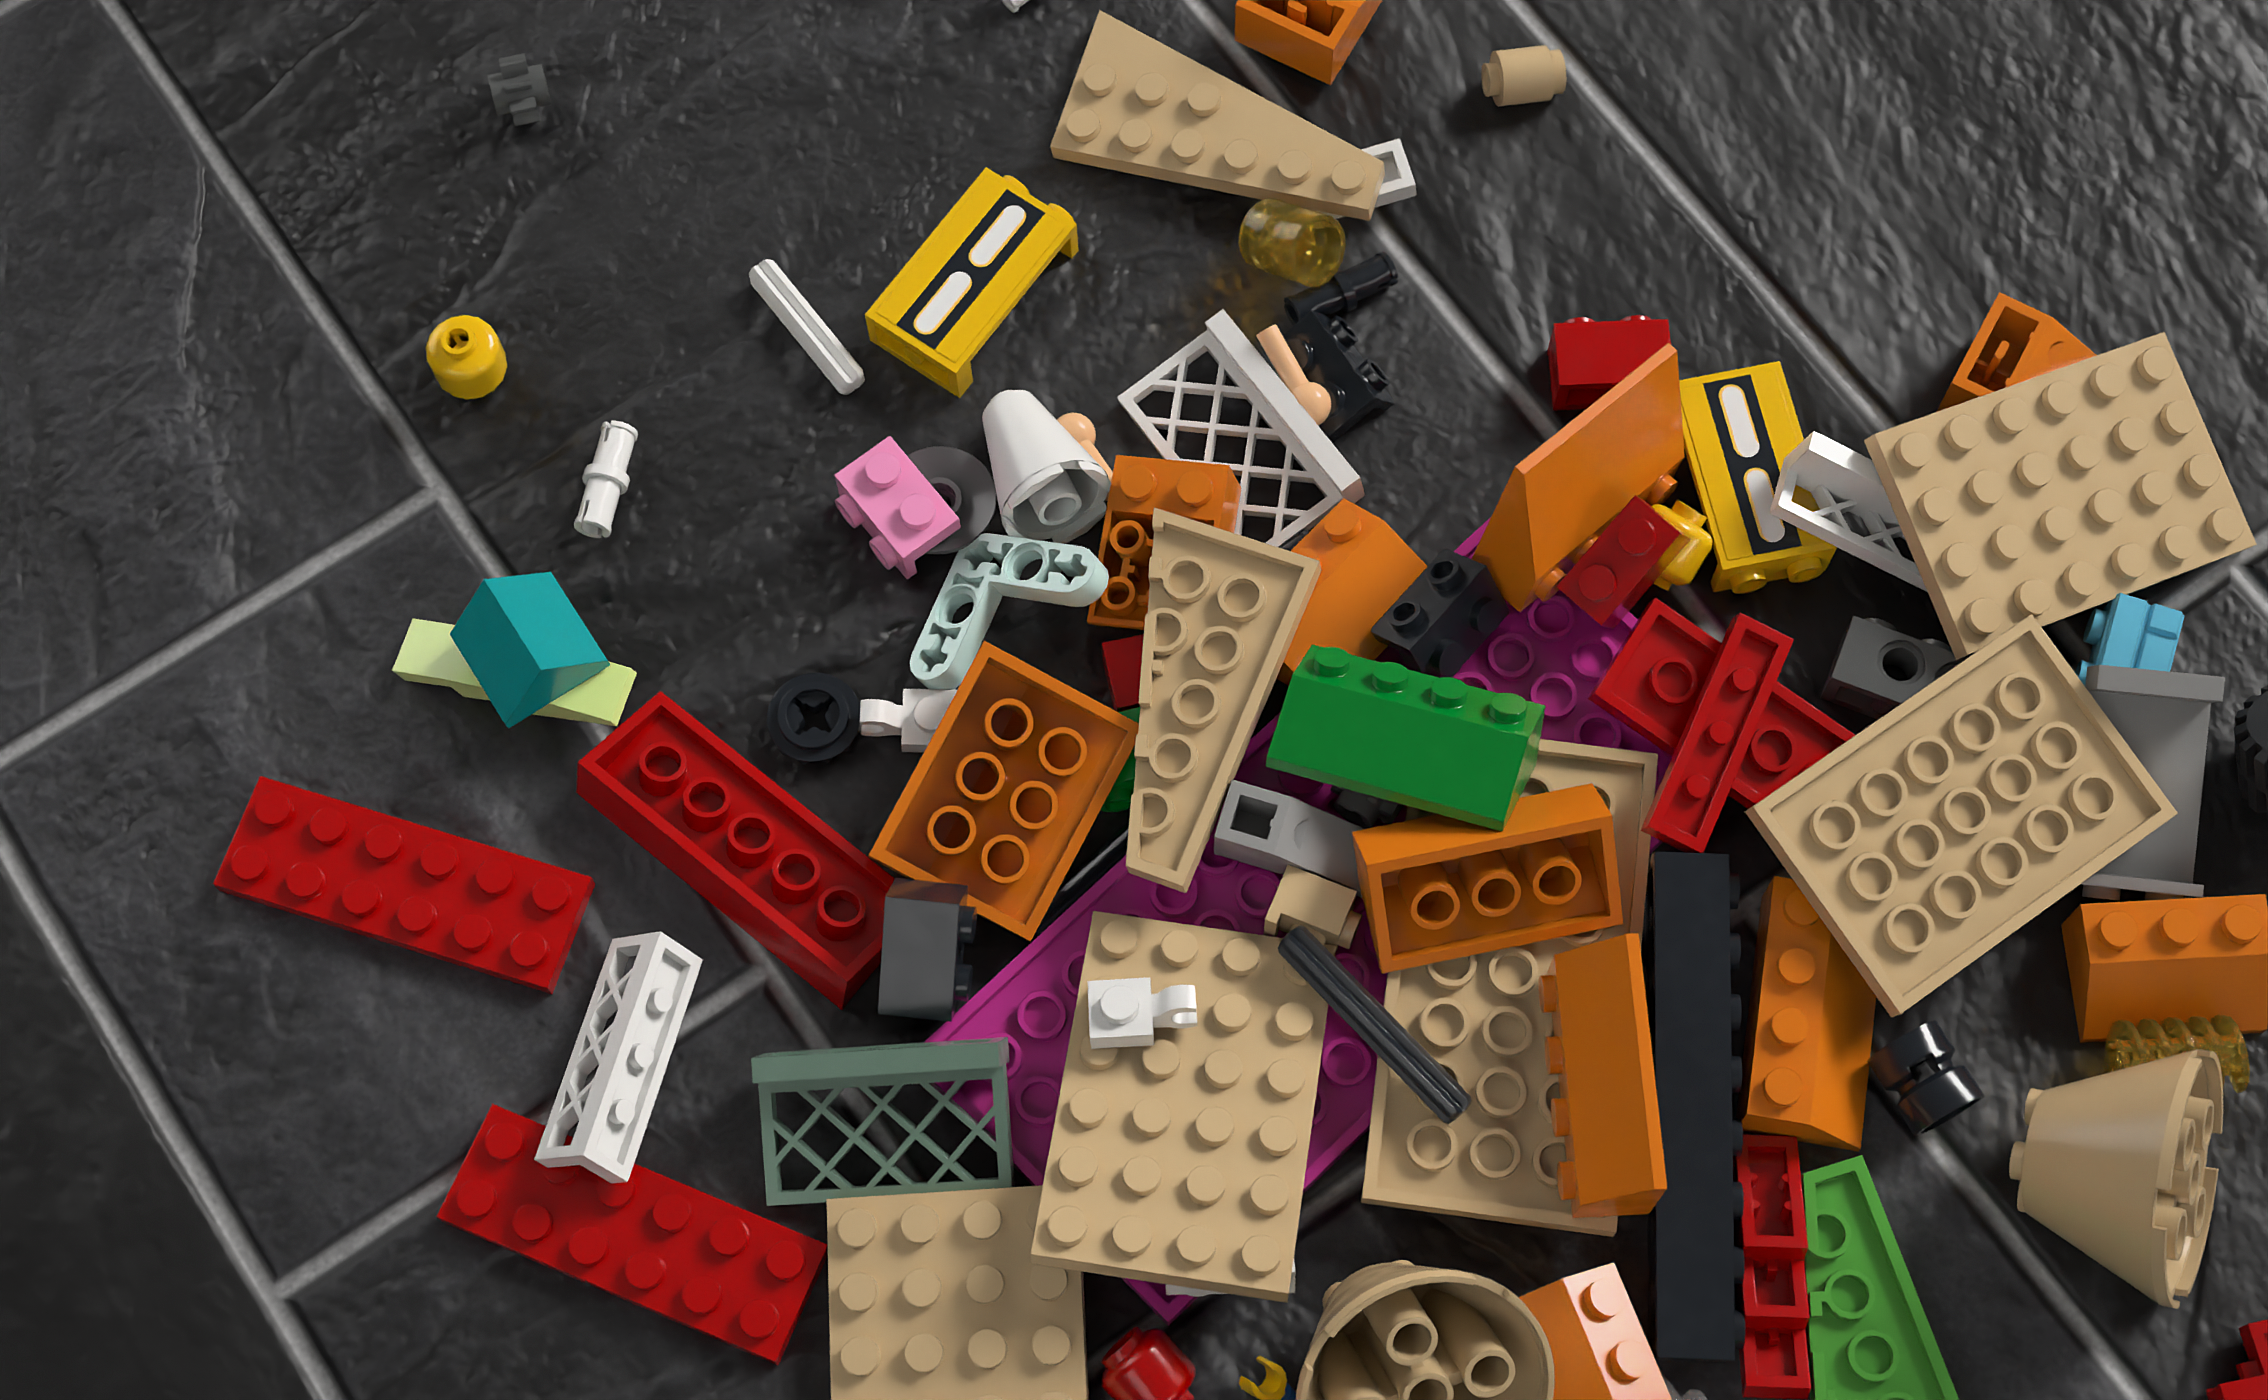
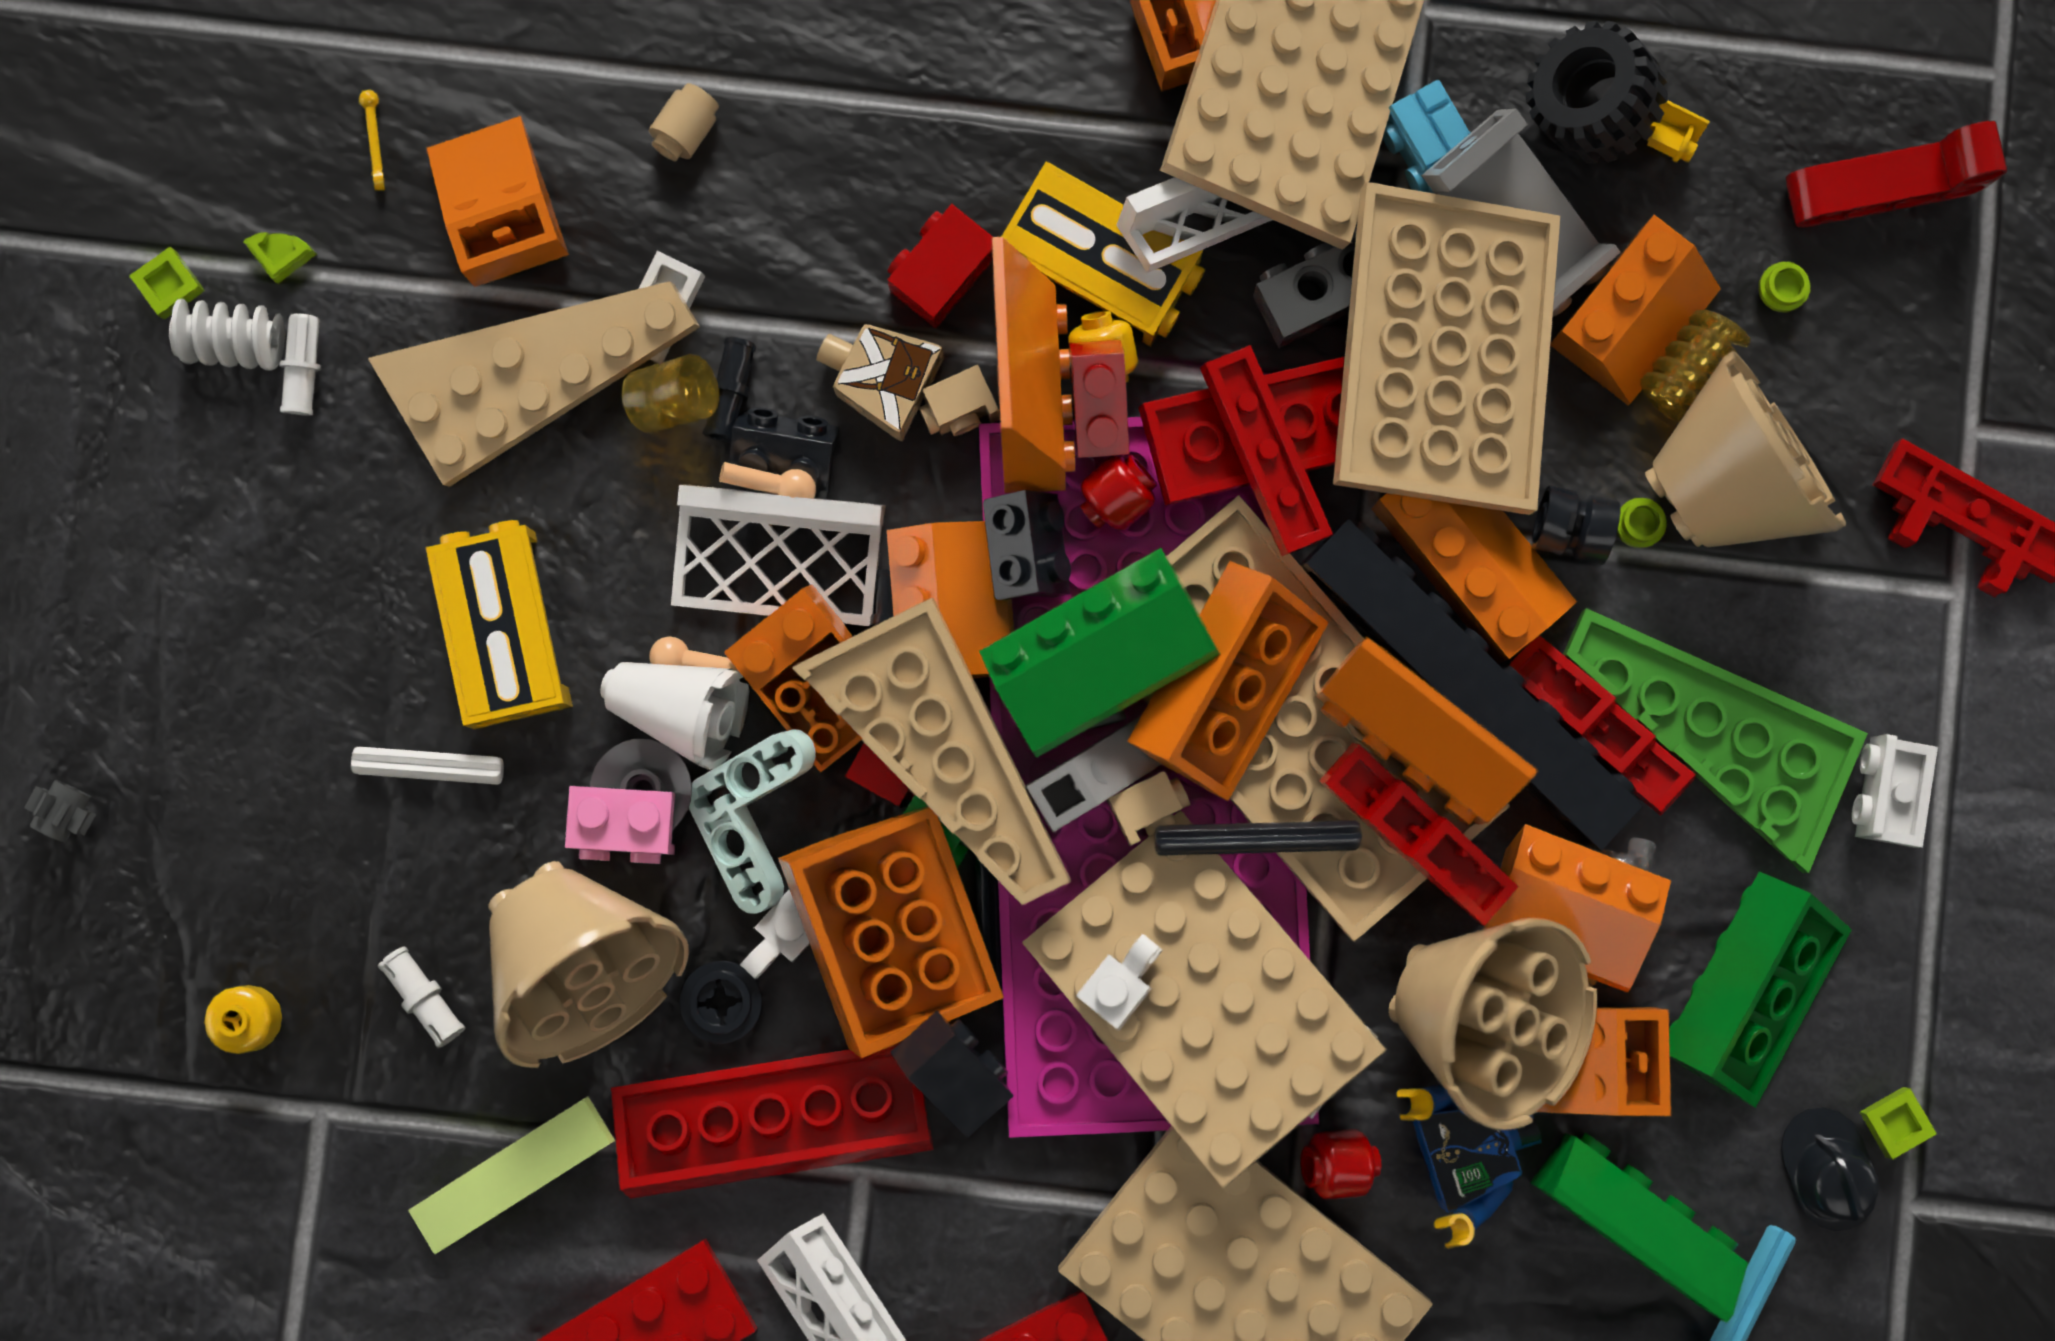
camera: 50 degrees left, 15 degrees up
(525, 643) = (506, 1156): teal slope -> none
(737, 566) = (574, 965): none -> tan cone
(883, 1066) = (999, 1173): sand green fence -> none
(1473, 396) = (882, 374): none -> torso
(1493, 464) = (958, 403): none -> tan brick
(1513, 1163) = (1419, 834): none -> red slope
(1560, 653) = (1118, 492): none -> red head
(1986, 1141) = (1641, 523): none -> lime plate

